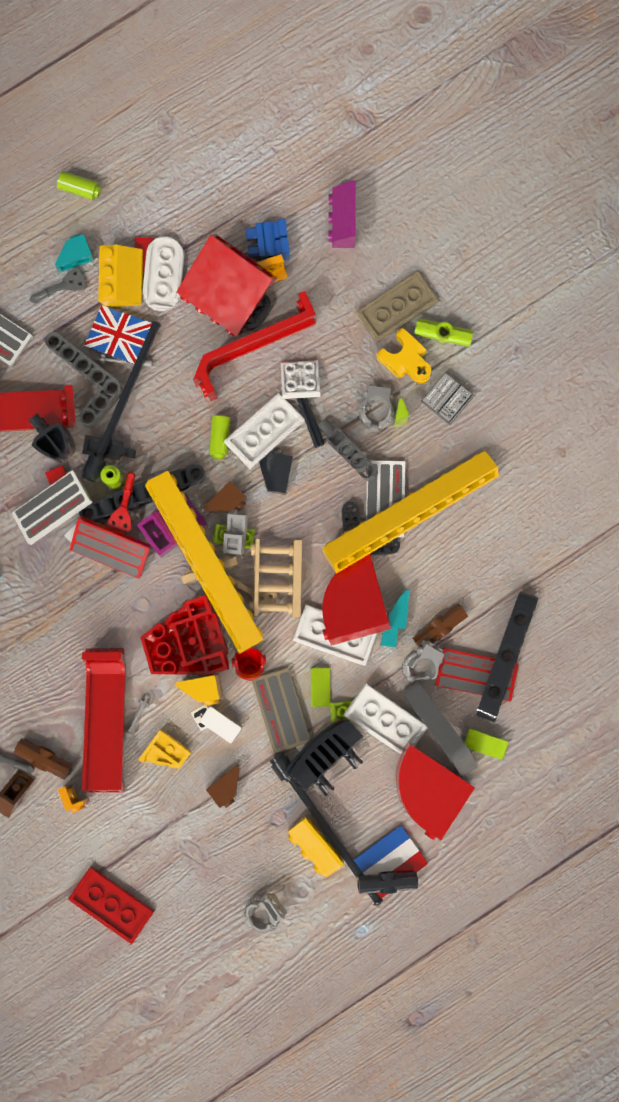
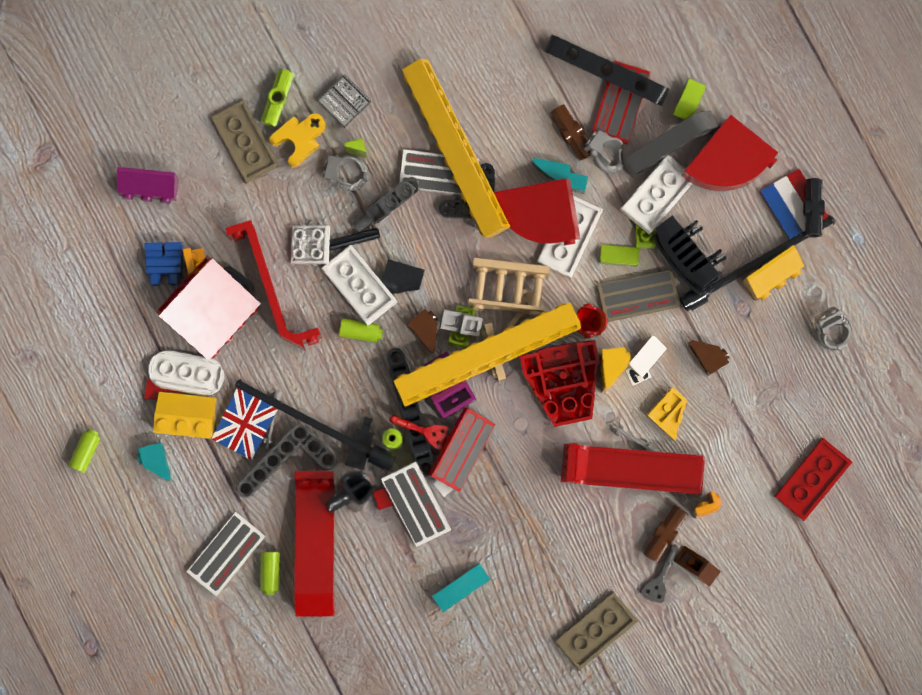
camera: 90 degrees left, 0 degrees up
(64, 285) = (186, 475): dark grey piece -> none

